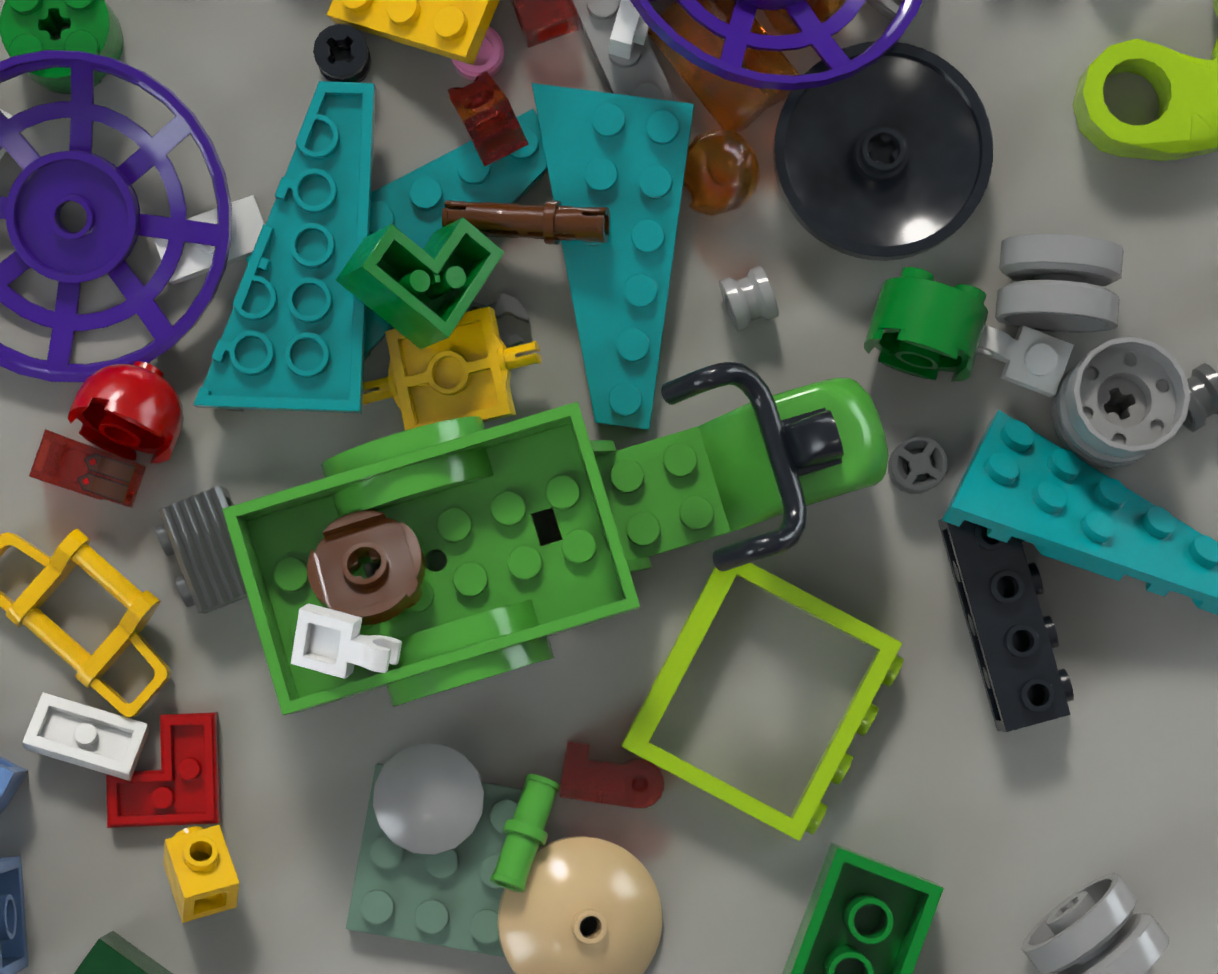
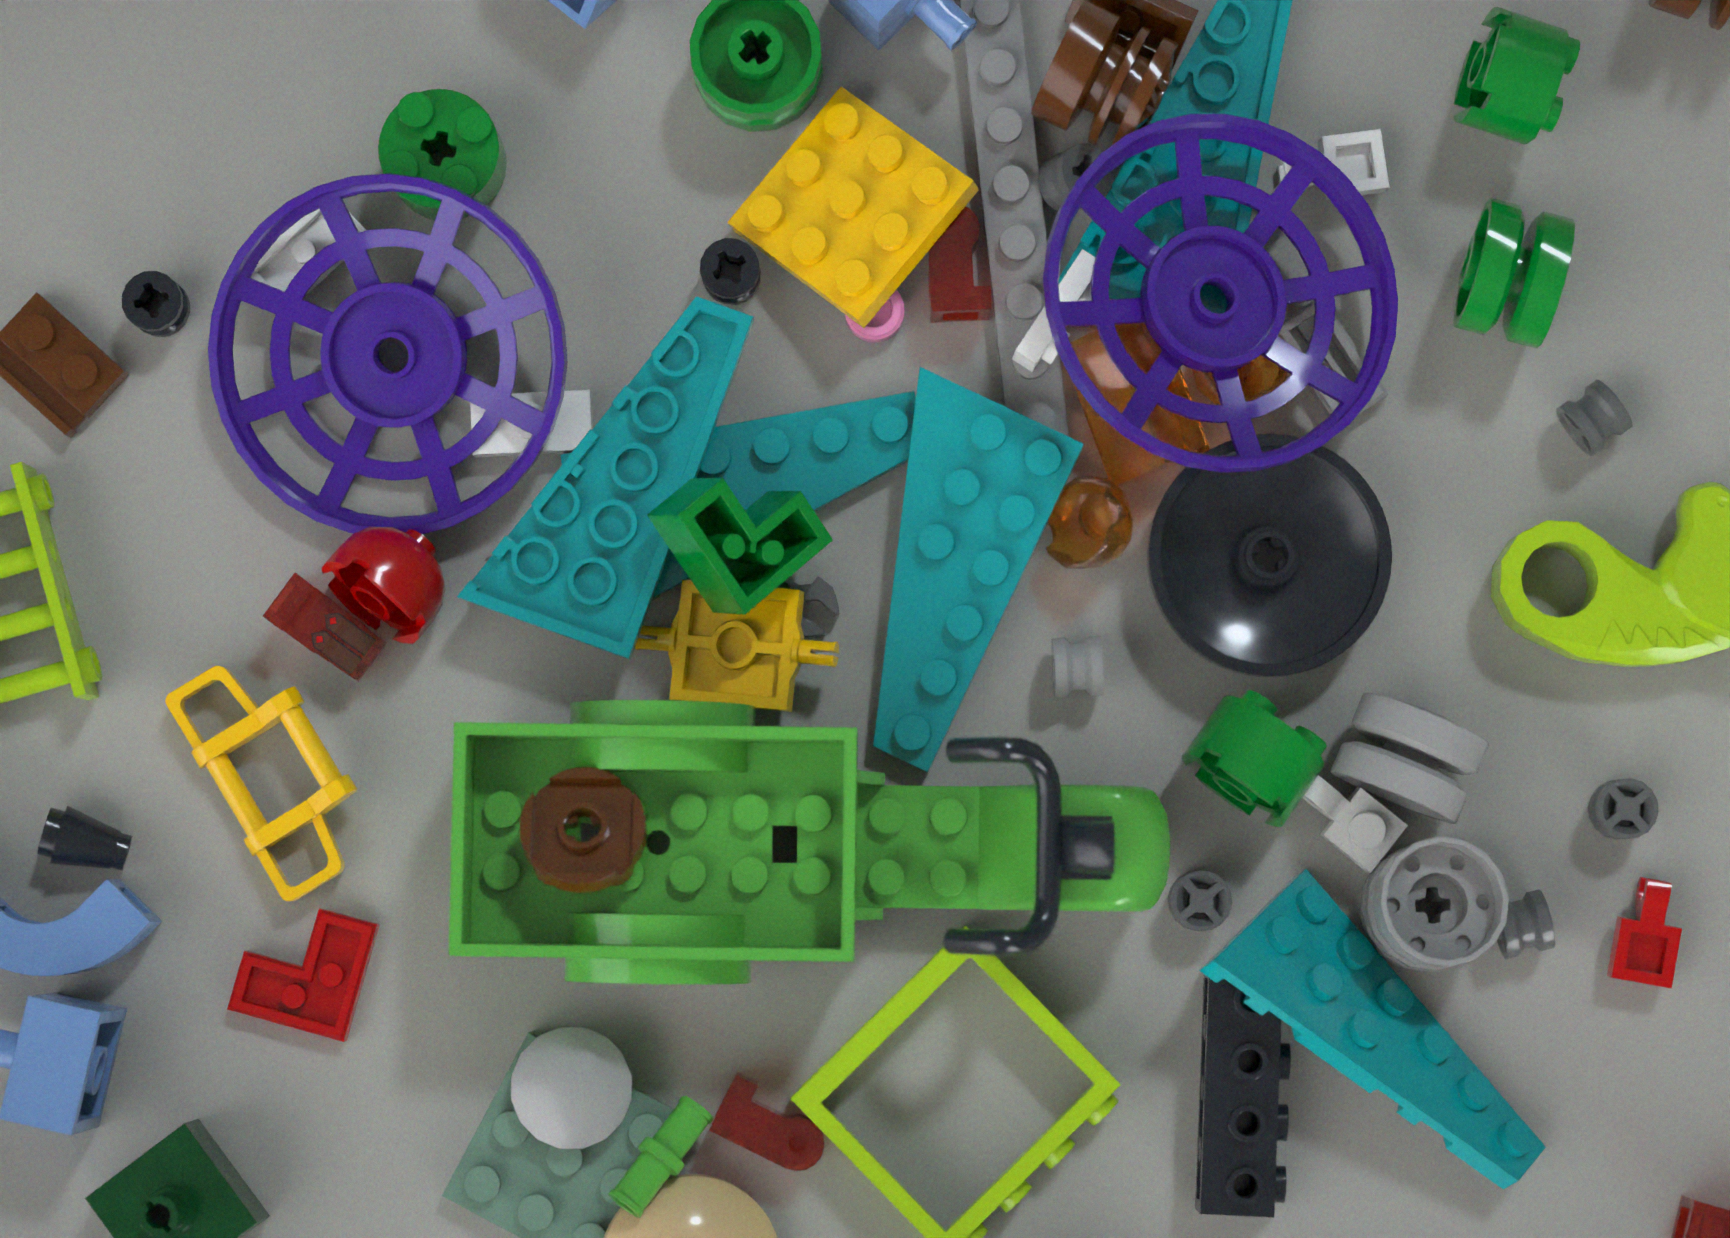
camera: 25 degrees right, 0 degrees up
(86, 736) = (235, 906): white plate -> none
(200, 872) = (310, 1088): yellow brick -> none
(202, 544) = (420, 750): dark grey brick -> none
(333, 643) = (524, 900): white plate -> none
(487, 118) = (860, 389): clear red leg -> none
(535, 221) = (885, 519): reddish brown pin -> none

